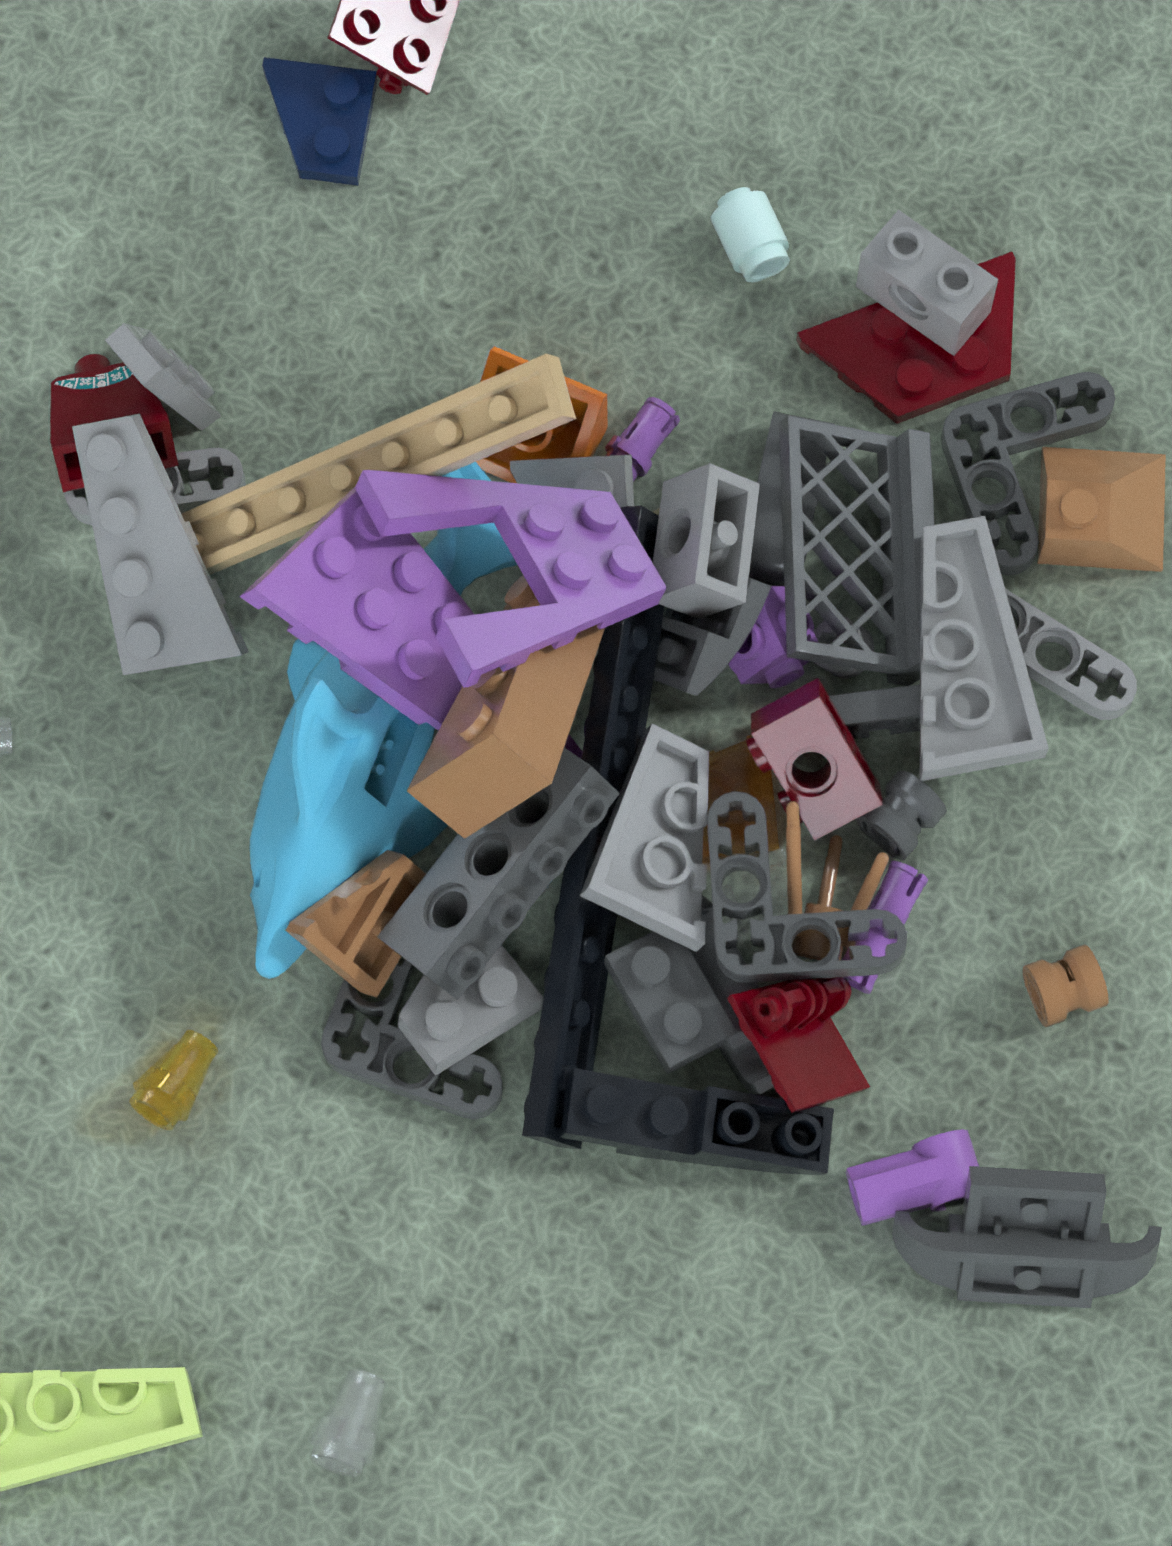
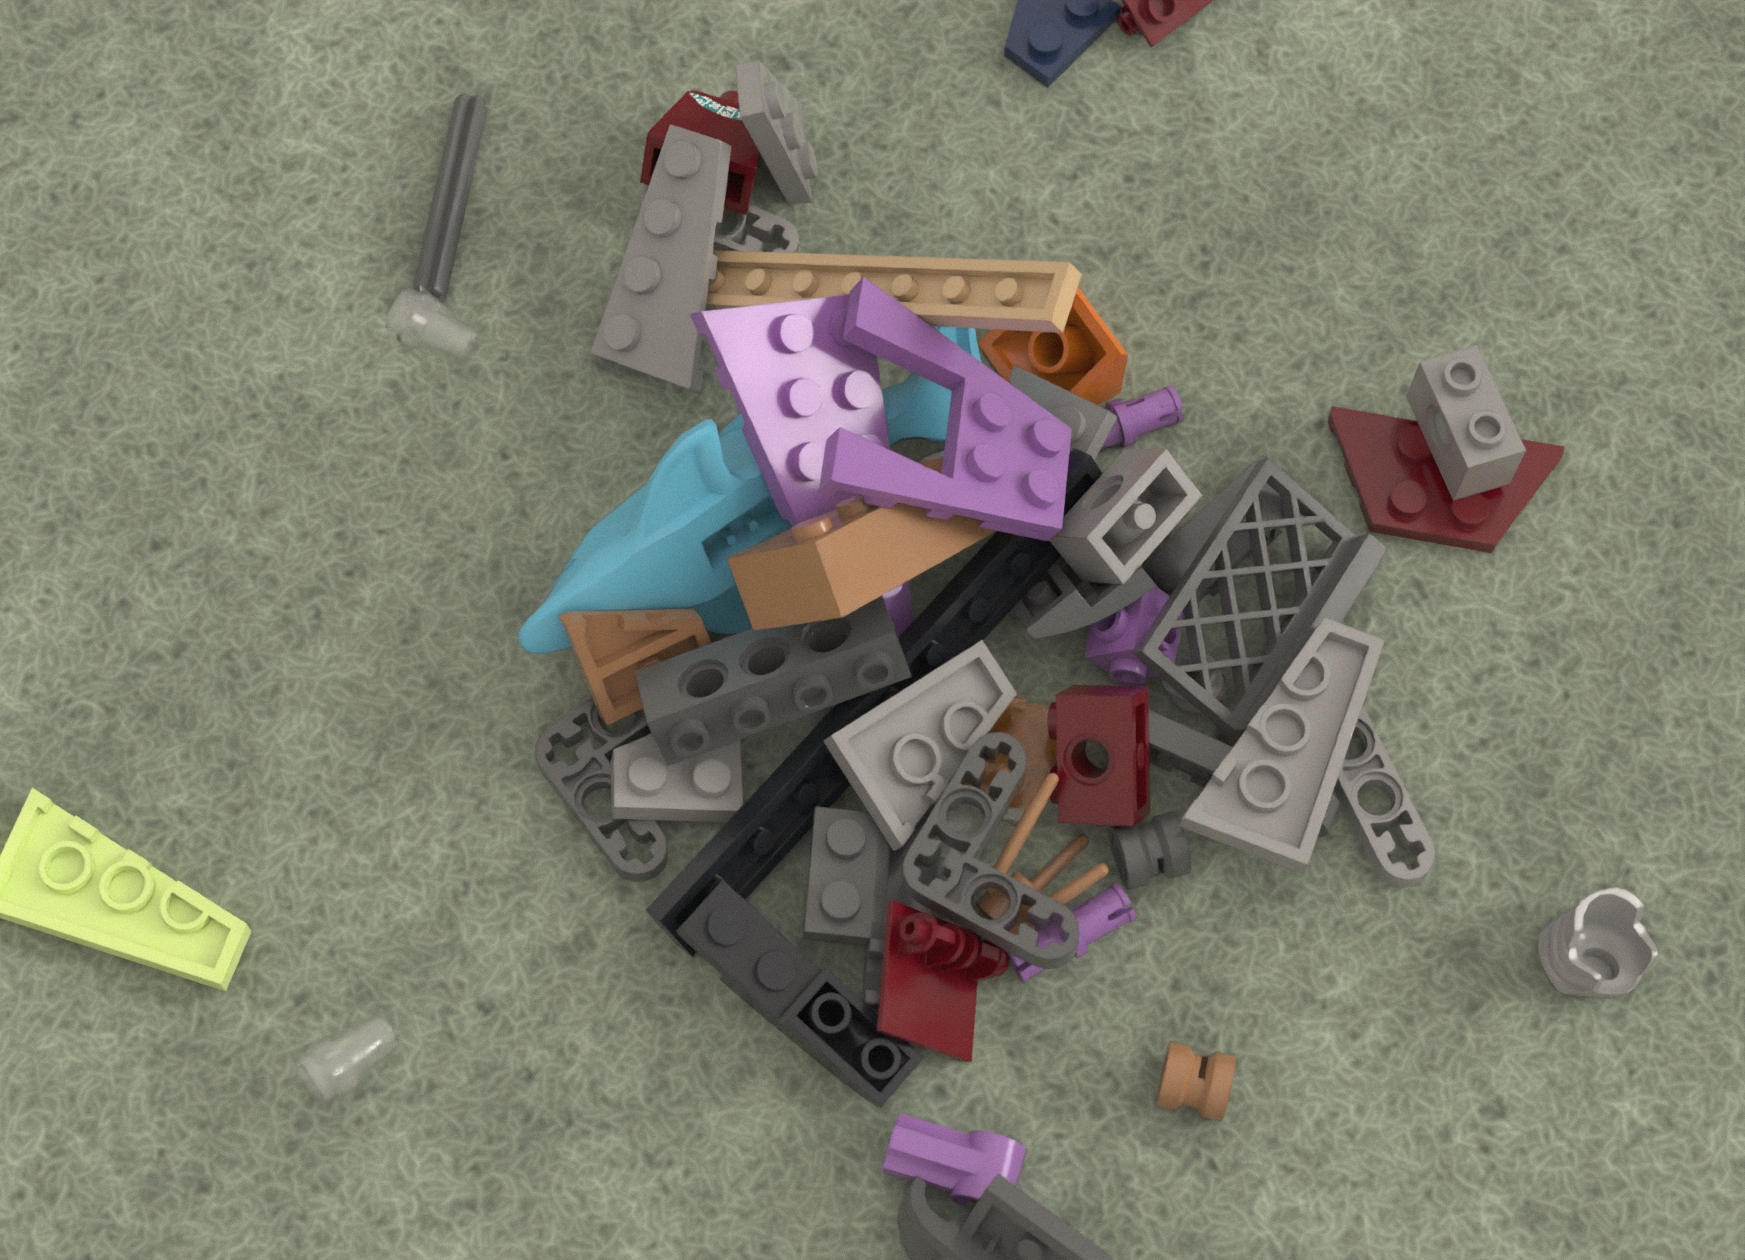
camera: 30 degrees right, 5 degrees down
(172, 1083) = (402, 693): clear yellow cone -> none
(751, 234) = (1345, 305): light aqua brick -> none
(1003, 439) = (1451, 595): dark grey beam -> none
(1101, 509) = (1500, 704): medium nougat slope -> none

